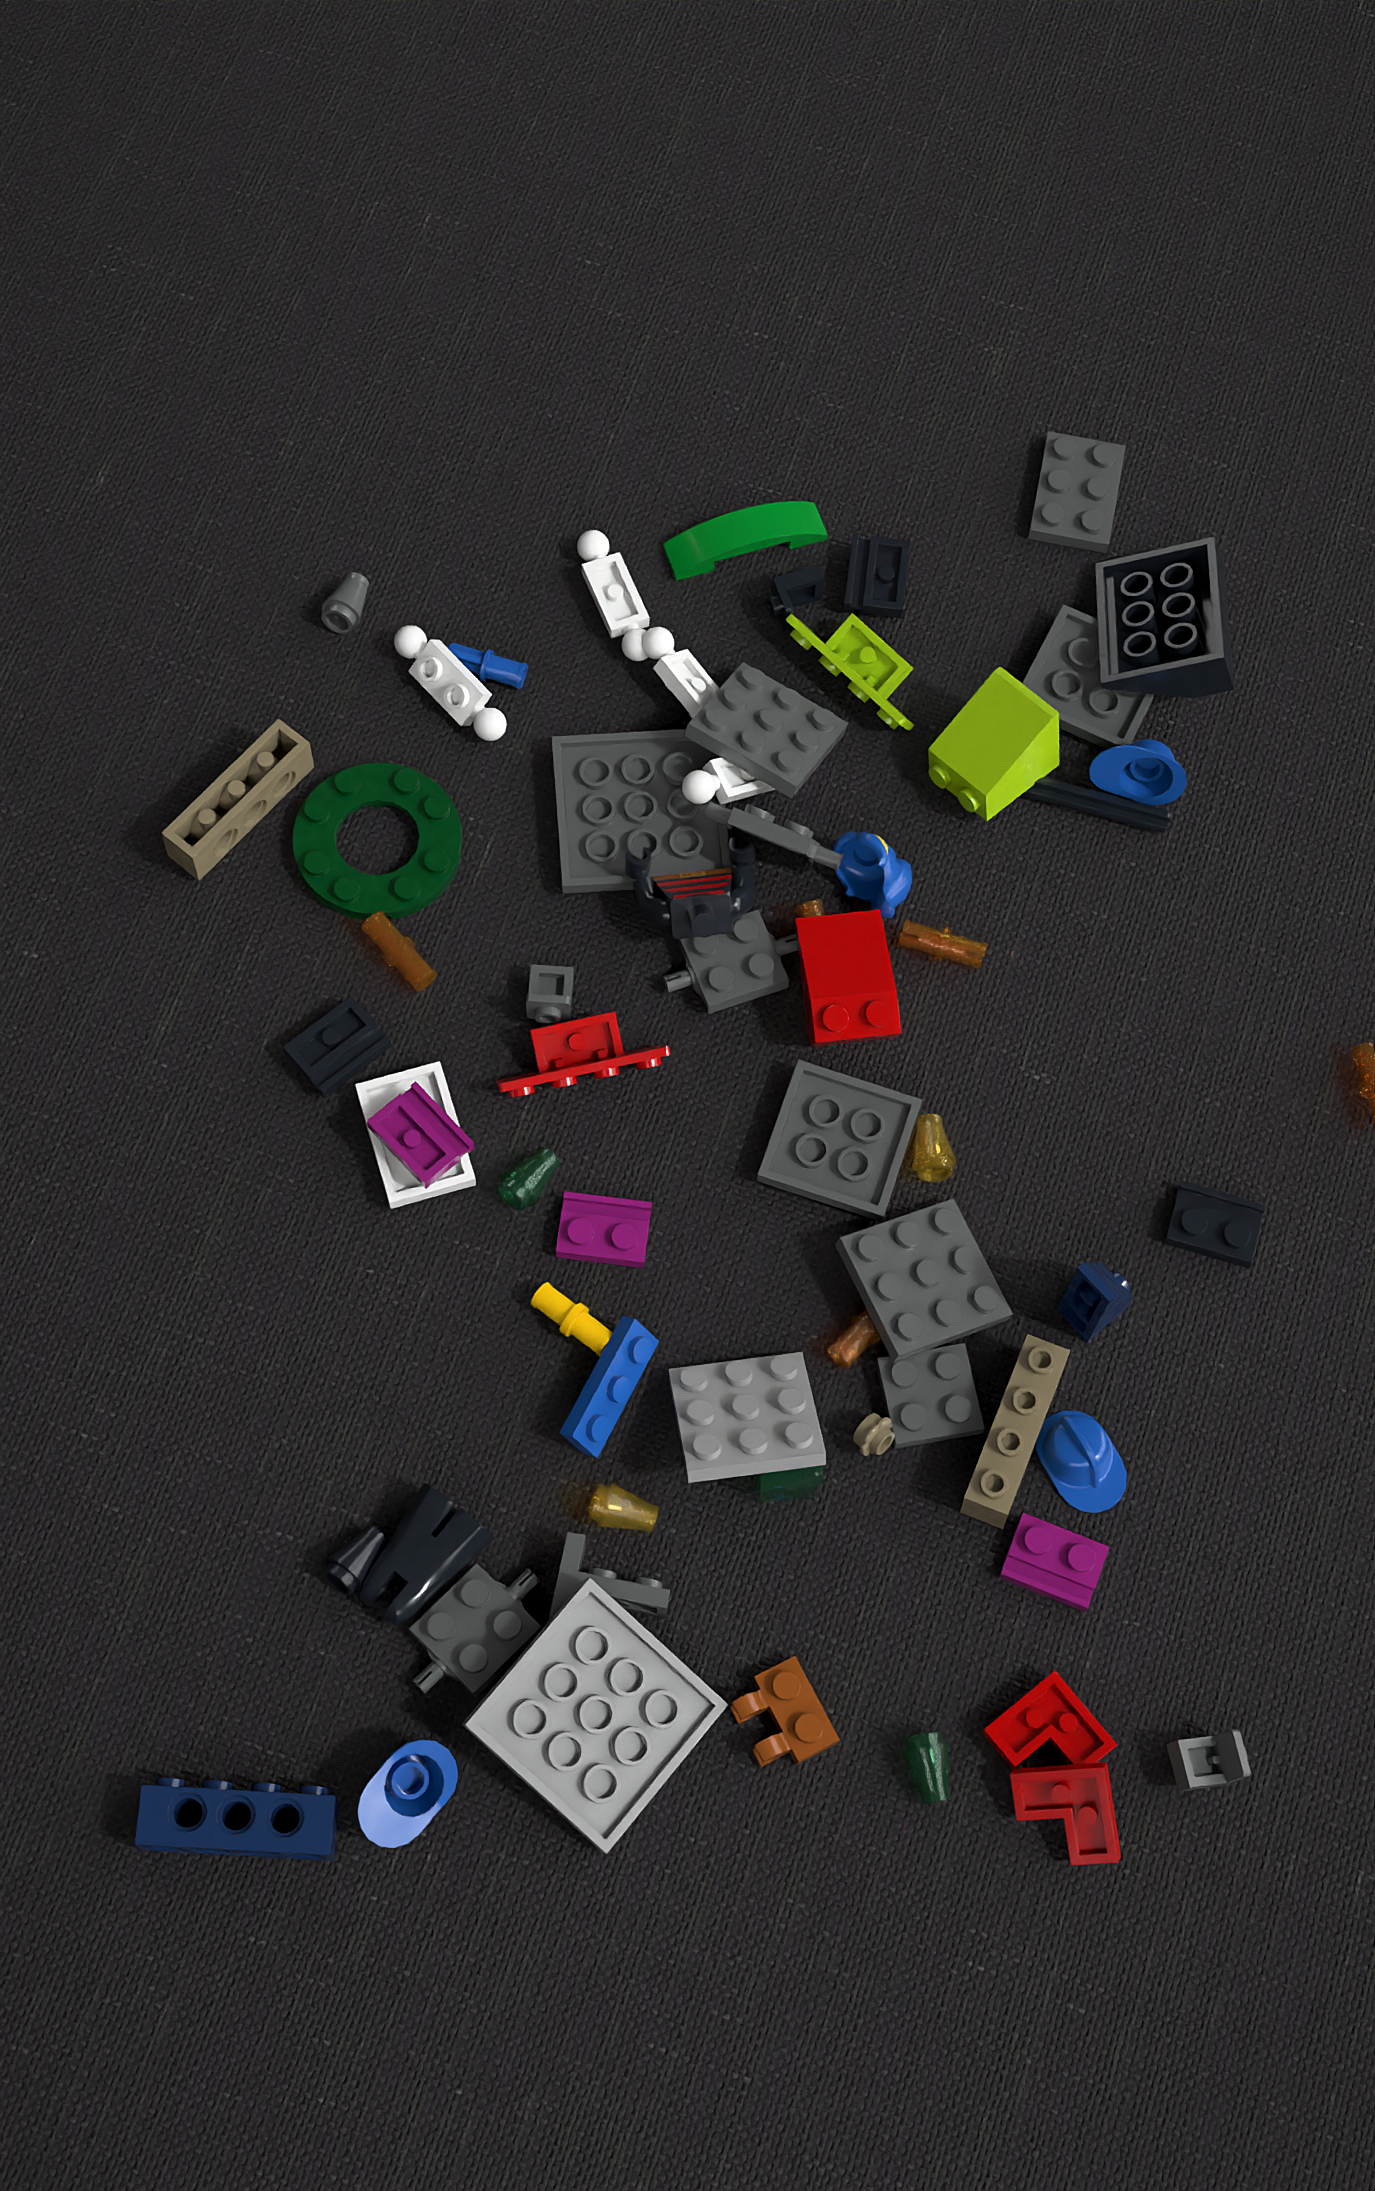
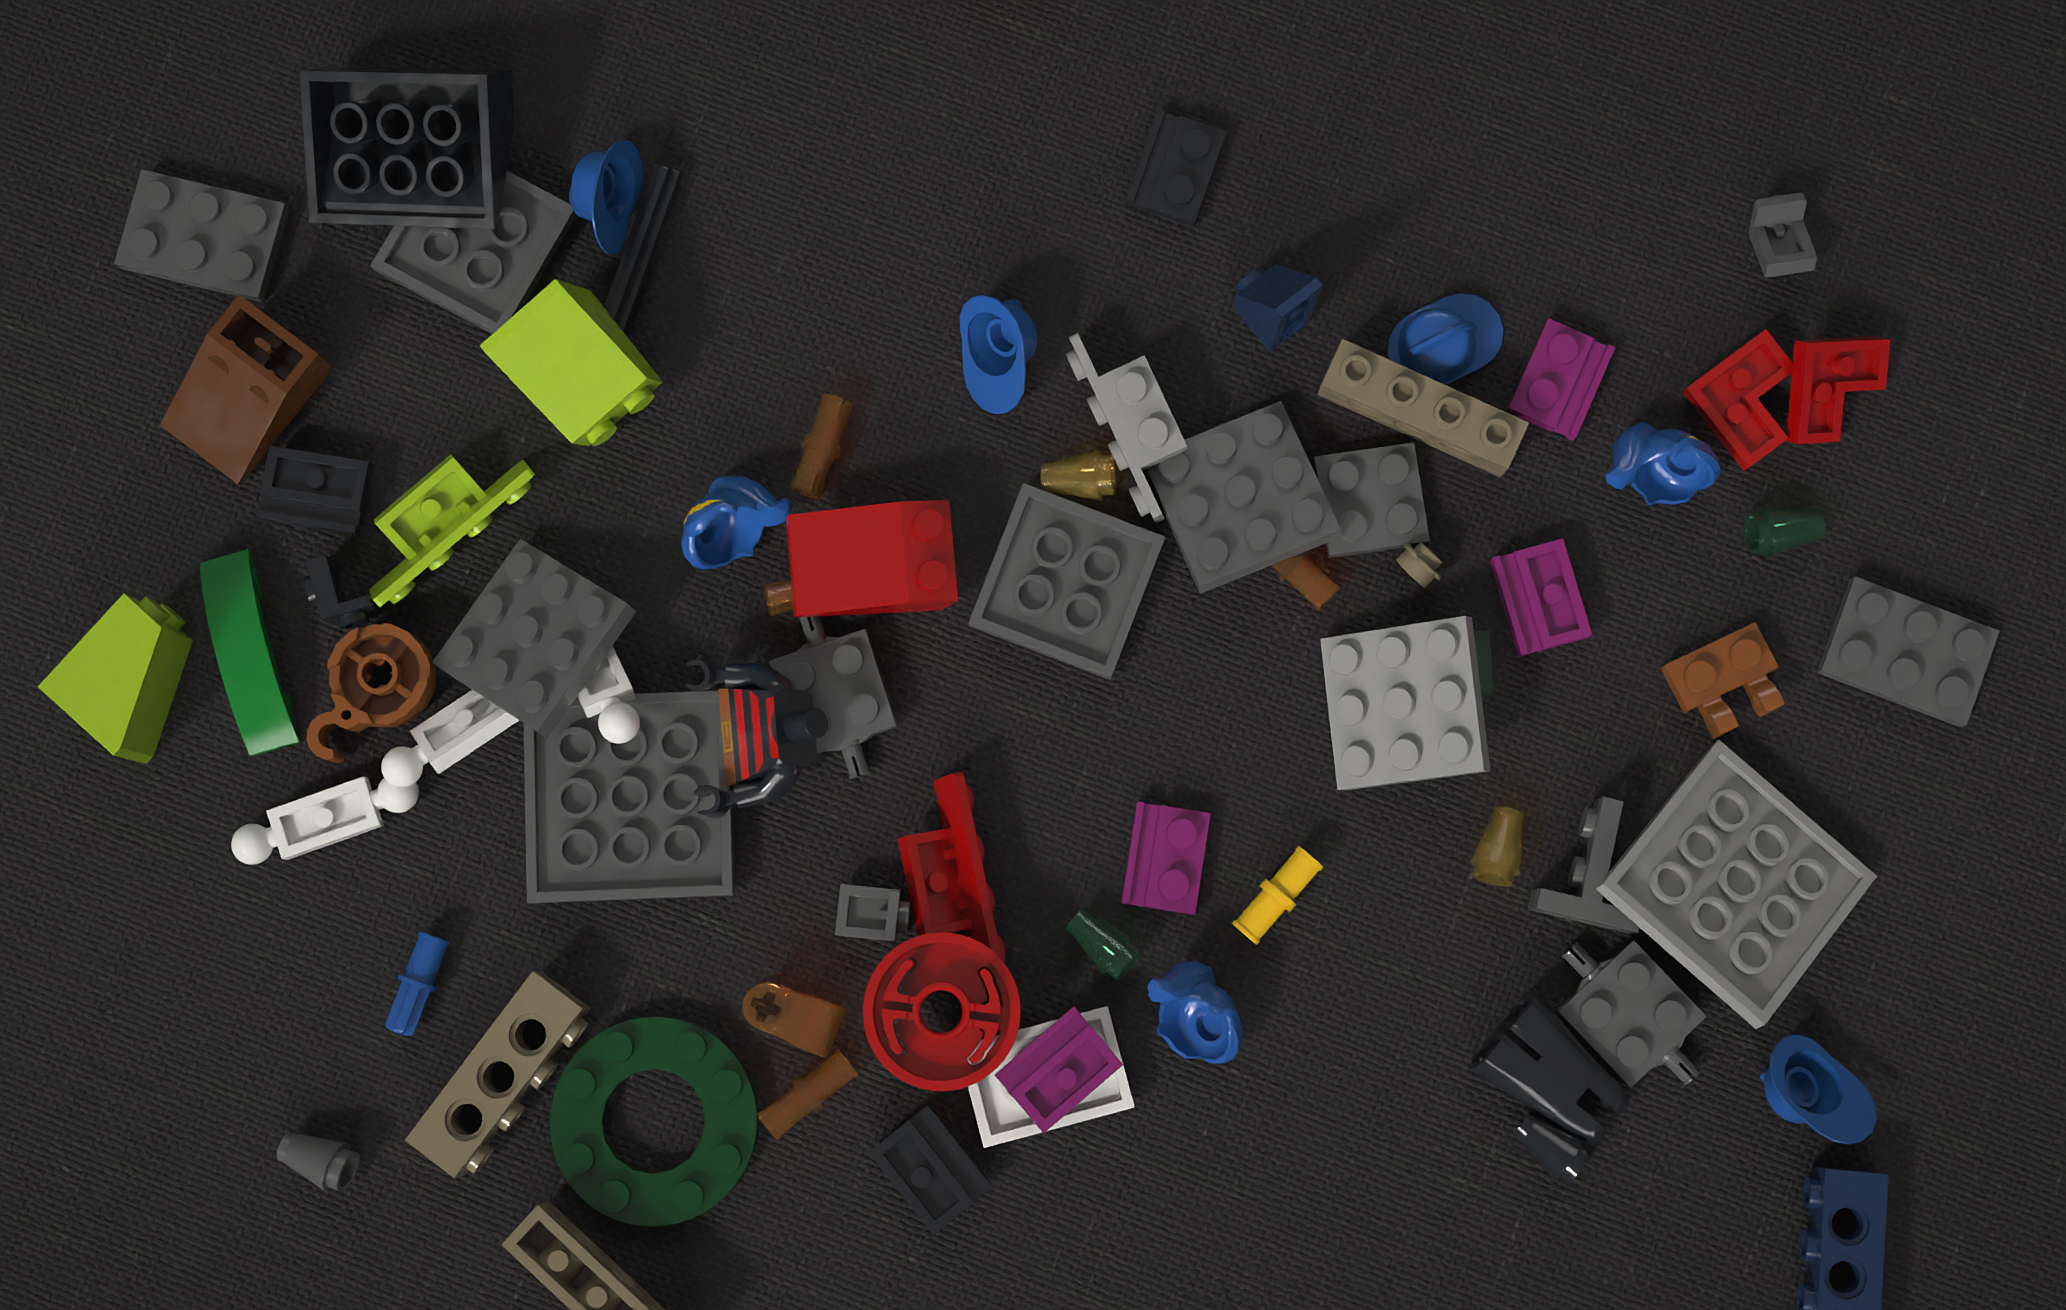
camera: 80 degrees left, 15 degrees up
(371, 683) = (439, 1130): none -> dark tan brick
(450, 683) = (441, 1029): white plate -> none
(462, 941) = (803, 1019): none -> clear orange piece
(472, 1248) = (1196, 1013): none -> blue hair
(504, 1049) = (940, 1058): none -> red piece
(609, 1387) = (1360, 856): blue plate -> none
(712, 610) = (354, 695): none -> dark orange piece
(718, 447) = (123, 676): none -> lime slope
(761, 825) = (685, 623): dark grey plate -> none
(820, 1890) = (1908, 651): none -> dark grey plate
(850, 1543) = (1540, 597): none -> magenta plate
(957, 522) = (243, 389): none -> reddish brown slope
(980, 1644) = (1662, 464): none -> blue hair
(986, 1187) = (1138, 417): none -> light grey bracket
(1038, 1078) = (995, 351): none -> blue piece

